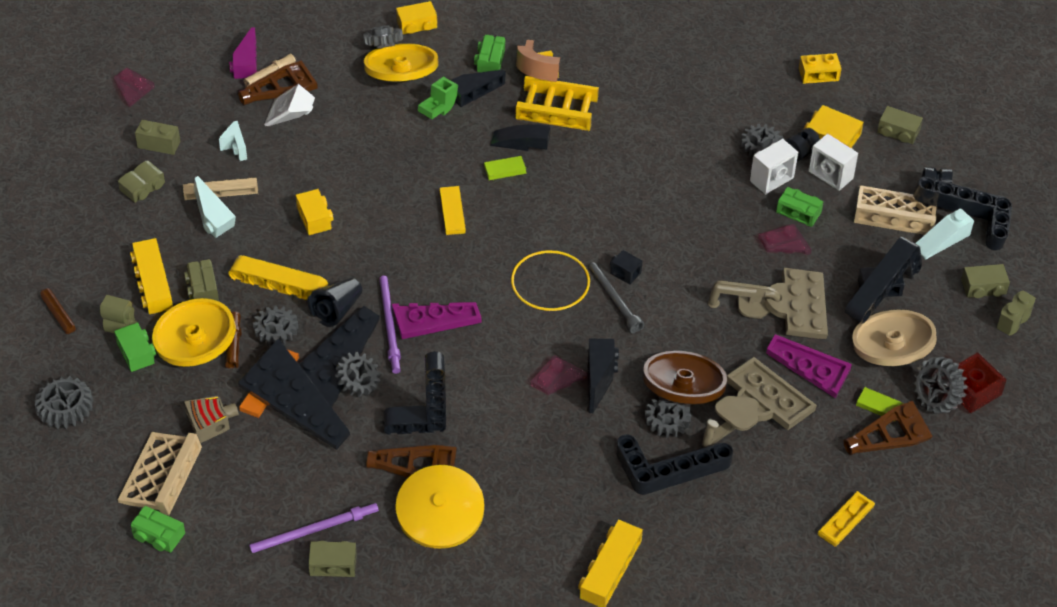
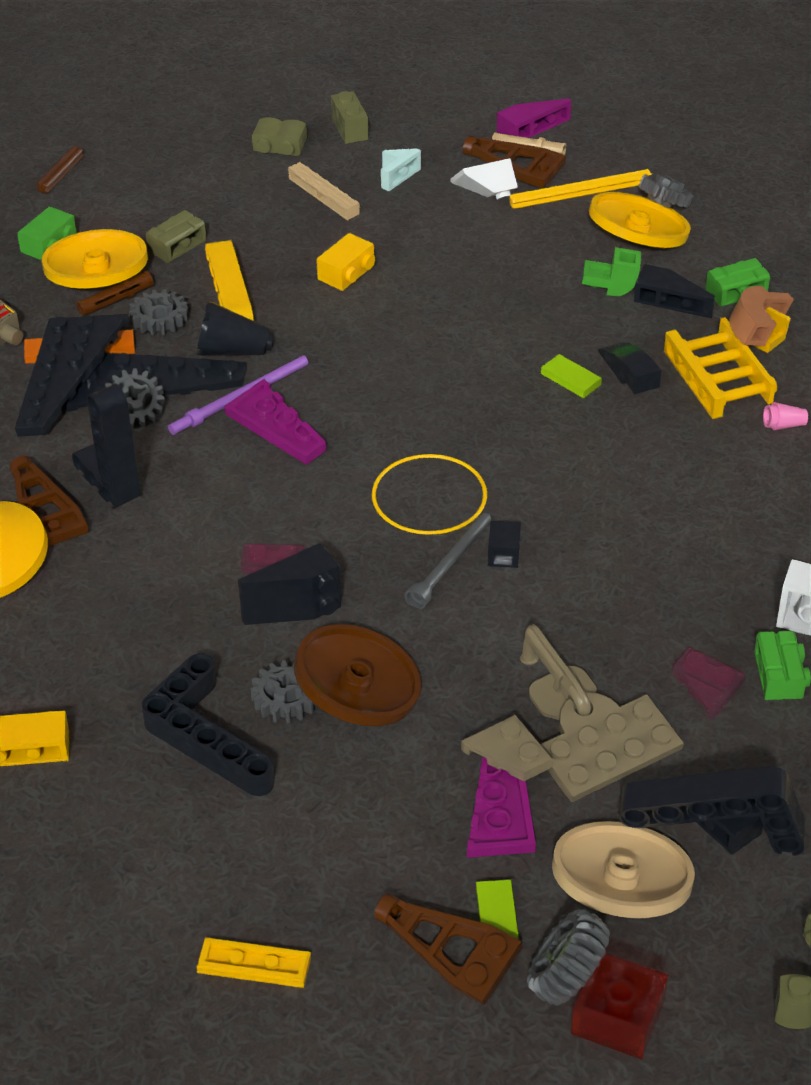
camera: 60 degrees right, 5 degrees down
(116, 313) = (71, 195): olive brick -> none
(132, 85) = (410, 75): clear pink wing -> none
(152, 276) = (155, 200): yellow brick -> none
(213, 212) = (278, 193): light aqua slope -> none
(335, 72) = (577, 189): none -> yellow axle
(416, 17) = (729, 203): yellow brick -> none
(452, 210) = (460, 365): yellow tile -> none
(617, 101) = (783, 416): none -> bright pink cone
(759, 398) = (396, 775): dark tan plate -> none
(784, 340) = (510, 748): none -> dark tan wing

